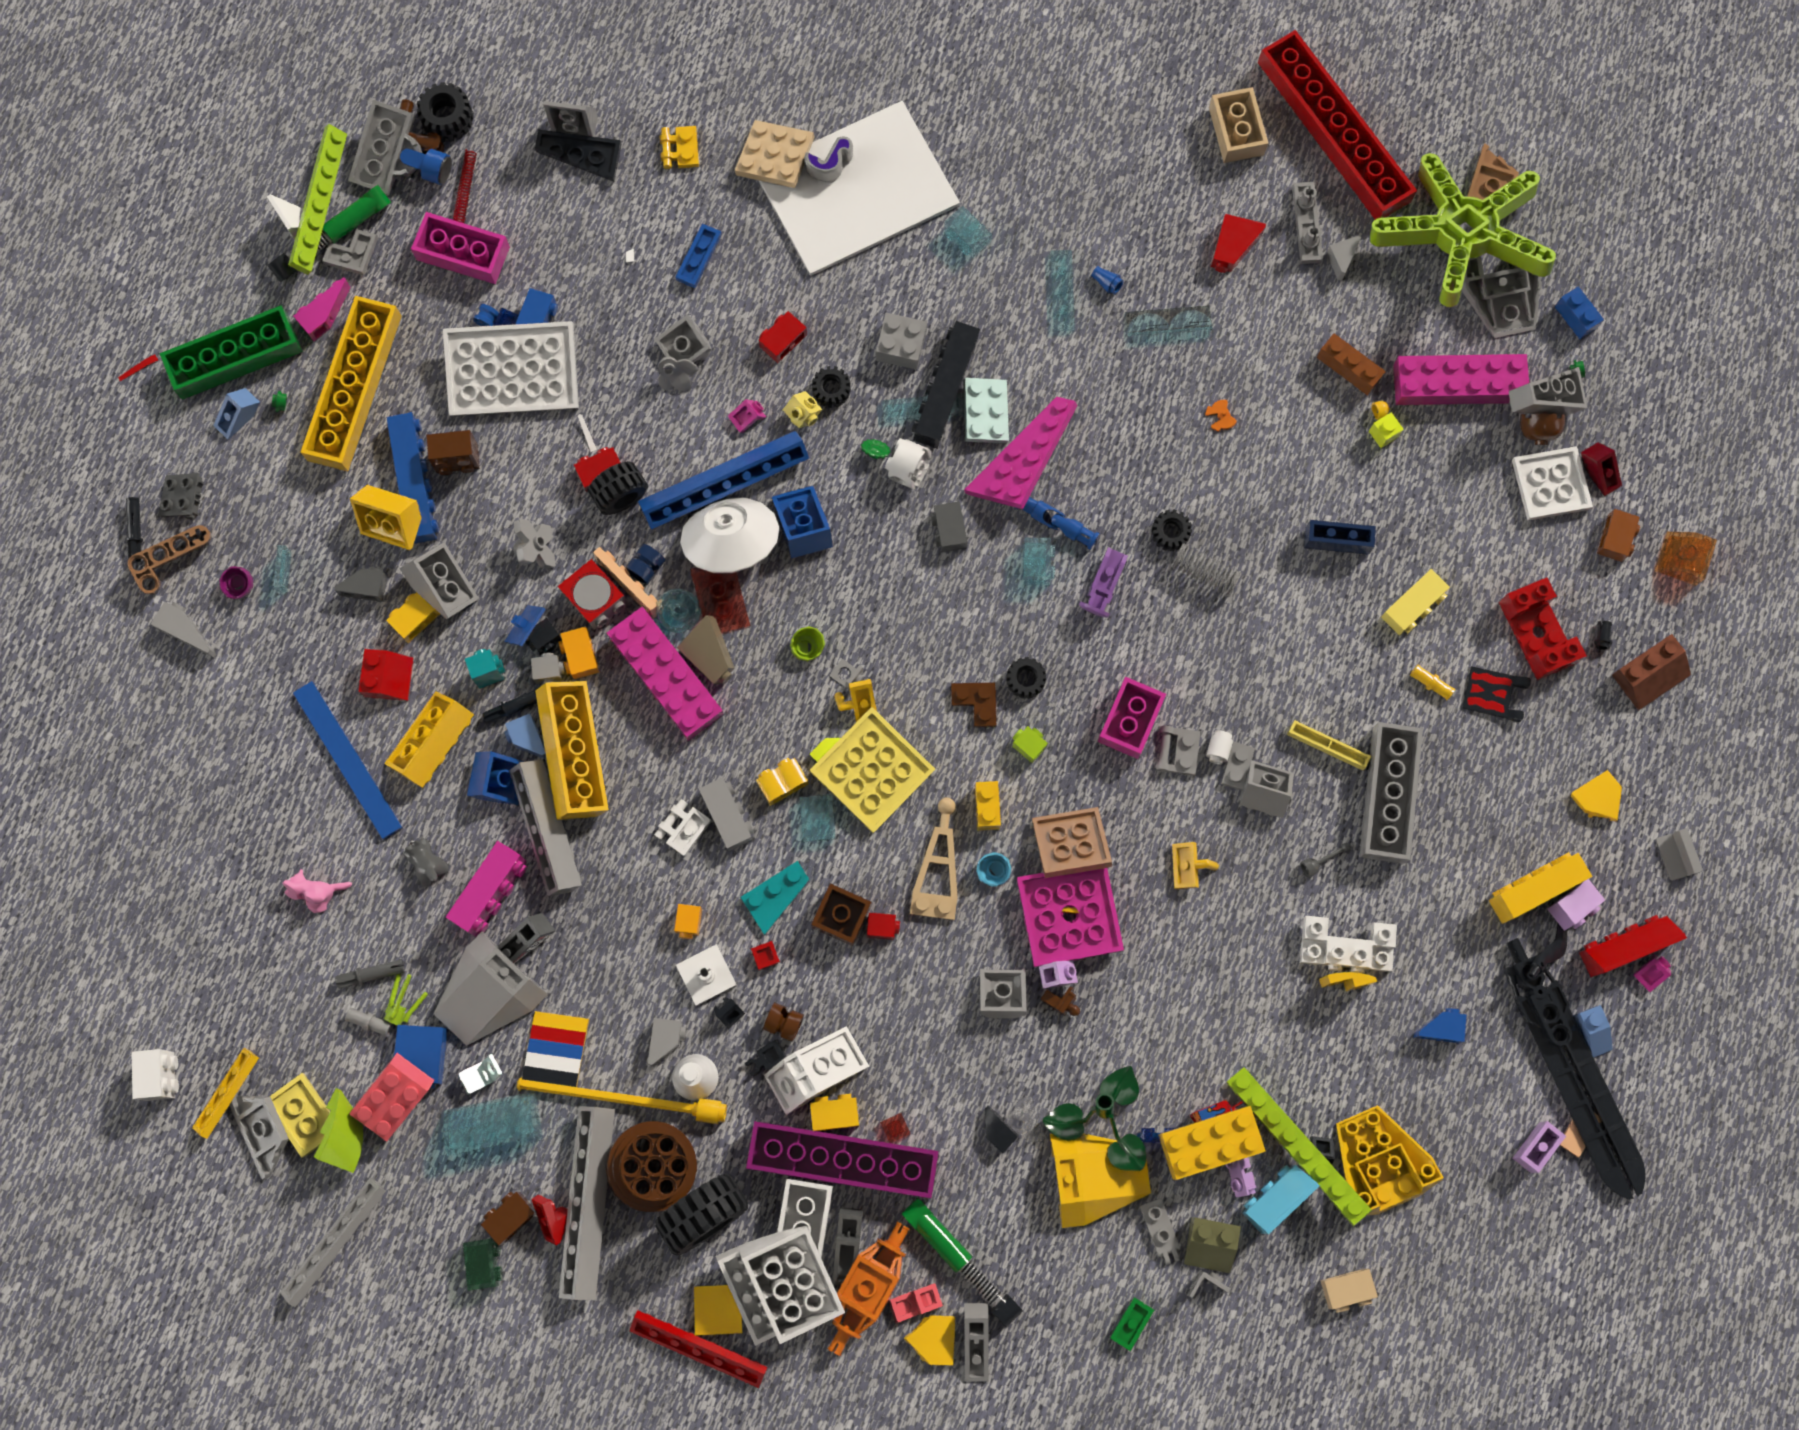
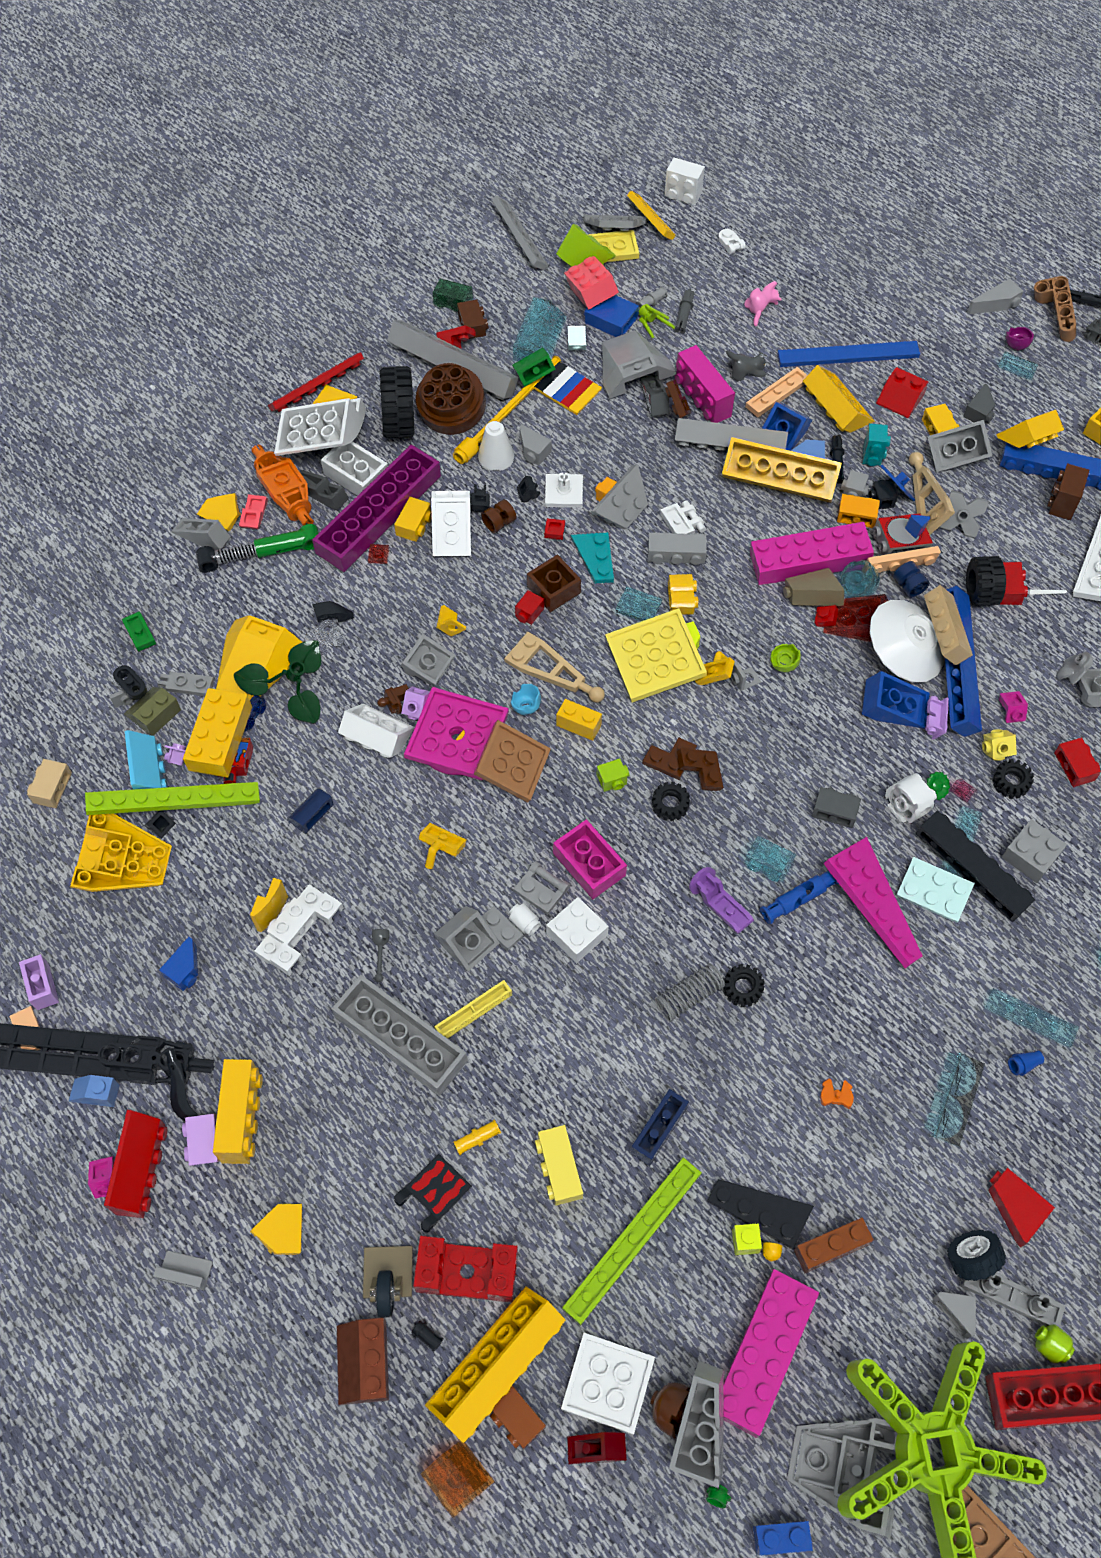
camera: 120 degrees right, 15 degrees down
(219, 984) = (727, 238): none -> white plate
(448, 810) = (776, 392): none -> light nougat plate
(528, 902) = (680, 403): none -> reddish brown plate
(550, 566) = (942, 510): none -> tan plate
(554, 1097) = (533, 367): none -> green brick
(584, 576) = (917, 524): none -> blue slope
(696, 897) = (624, 500): none -> light grey wing
(700, 499) = (948, 625): none -> tan brick
(732, 628) = (826, 616): none -> red plate
(807, 473) = (937, 724): none -> lavender hinge
(864, 425) = (963, 790): none -> clear pink slope
(944, 1001) = (448, 620): none -> yellow bracket
(969, 663) = (705, 763): none -> reddish brown plate
(1106, 998) = (375, 730): none -> white slope
(1205, 694) = (577, 930): none -> white brick
(1207, 1276) = (131, 683): none -> black plate
(1226, 1011) = (311, 810): none -> dark blue brick
(1306, 247) = (976, 1255): none -> black wheel
(1327, 181) = (1054, 1344): none -> lime head
(1352, 429) = (777, 1216): none -> black wing
(1437, 517) = (631, 1241): none -> lime plate
(1580, 692) = (387, 1276): none -> dark tan plate
(1597, 567) = (495, 1363): none -> yellow brick

